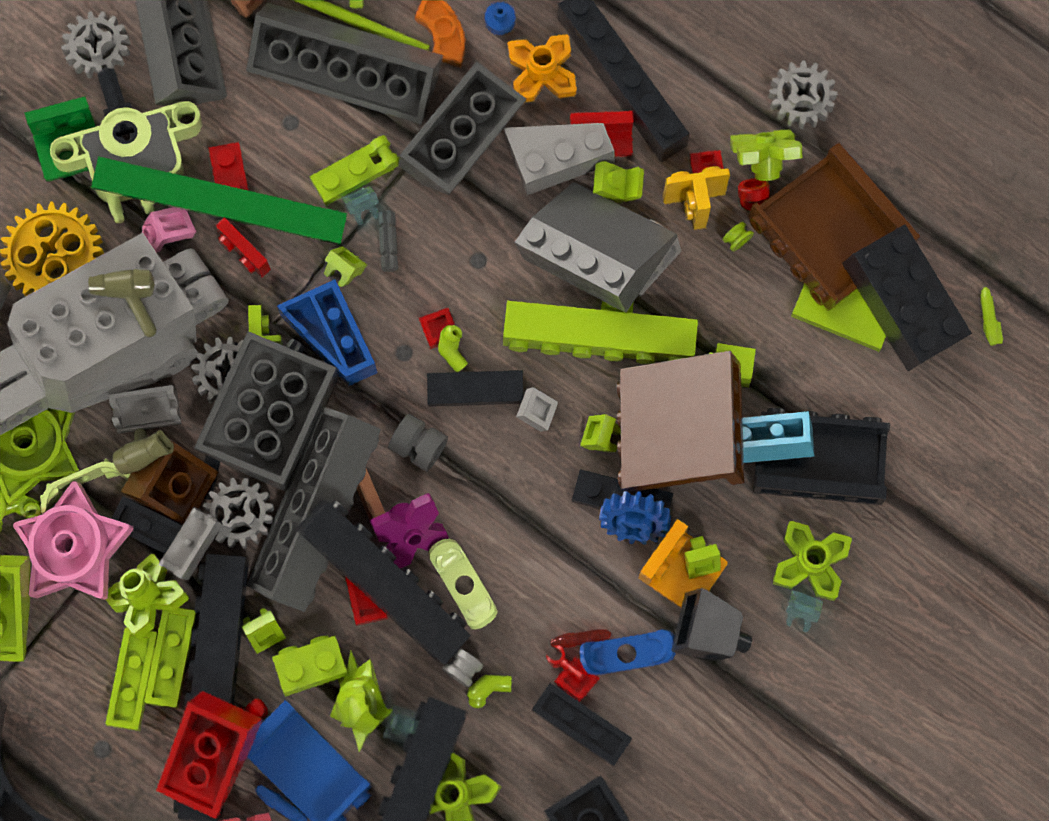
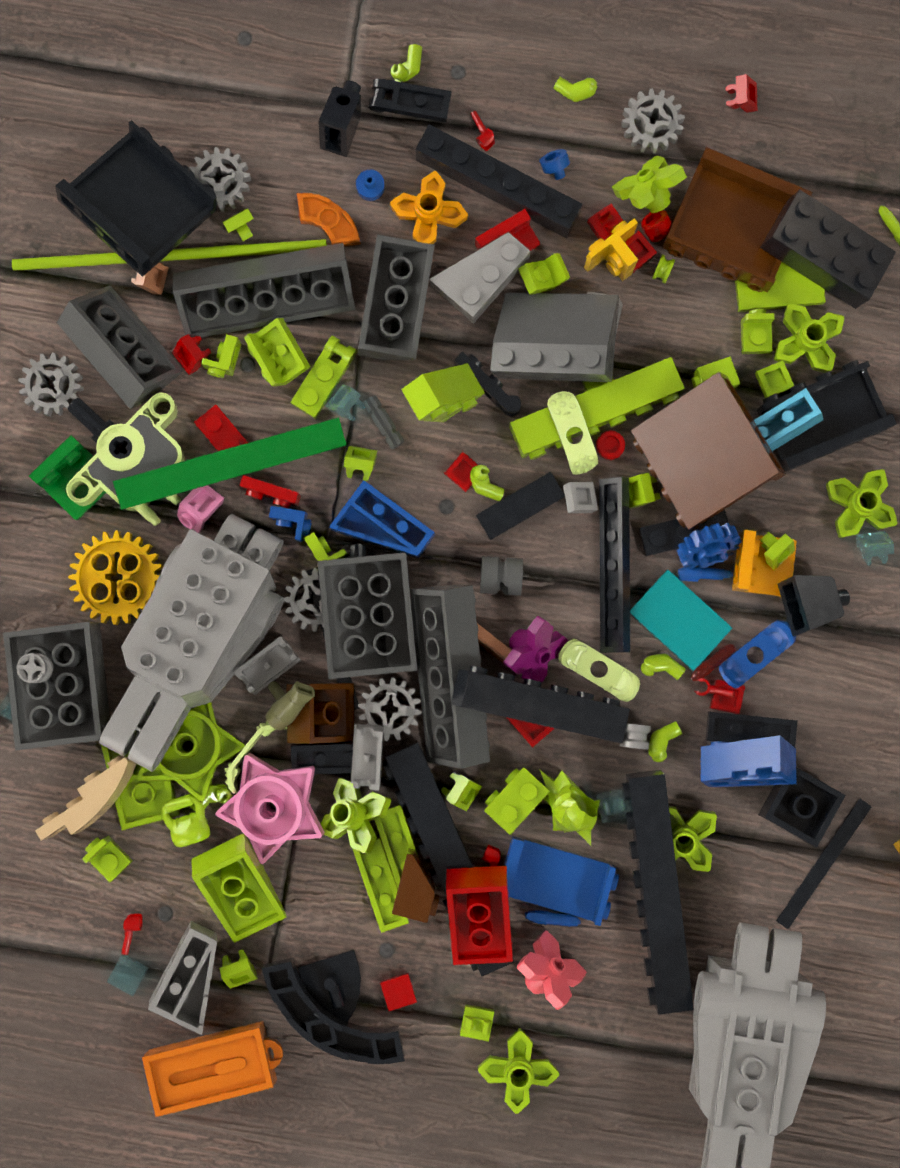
camera: 25 degrees left, 10 degrees up
(32, 753) = (334, 983): none -> black shield
(89, 795) = (398, 991): none -> red tile
(130, 286) = (208, 582): olive piece -> none
(160, 692) = (416, 891): none -> reddish brown slope
(240, 84) = (189, 353): none -> red tile
(245, 281) = (286, 517): none -> blue bracket
(274, 106) = (227, 354): none -> lime bracket
(322, 125) = (277, 353): none -> lime bracket
(454, 236) = (443, 393): none -> lime wedge
(508, 258) = (491, 386): none -> black plate
(530, 611) = (660, 663): none -> lime arm
(534, 492) = (614, 565): none -> black plate
(558, 748) = (749, 763): none -> wedge
(563, 320) = (568, 414): none -> yellowish green piece
(570, 580) = (680, 620): none -> teal tile
(595, 376) = (610, 445): none -> red tile
(612, 543) = (697, 573): none -> blue piece
(634, 31) = (486, 138): none -> red hand
(687, 86) = (555, 162): none -> blue tile
(723, 207) = (641, 249): none -> red plate
(746, 32) = (577, 91): none -> lime arm
(790, 395) = (774, 379): none -> lime plate
(797, 343) = (757, 332): none -> lime bracket
(847, 388) = (801, 326): none -> lime plant
(906, 114) = (745, 94): none -> red tile

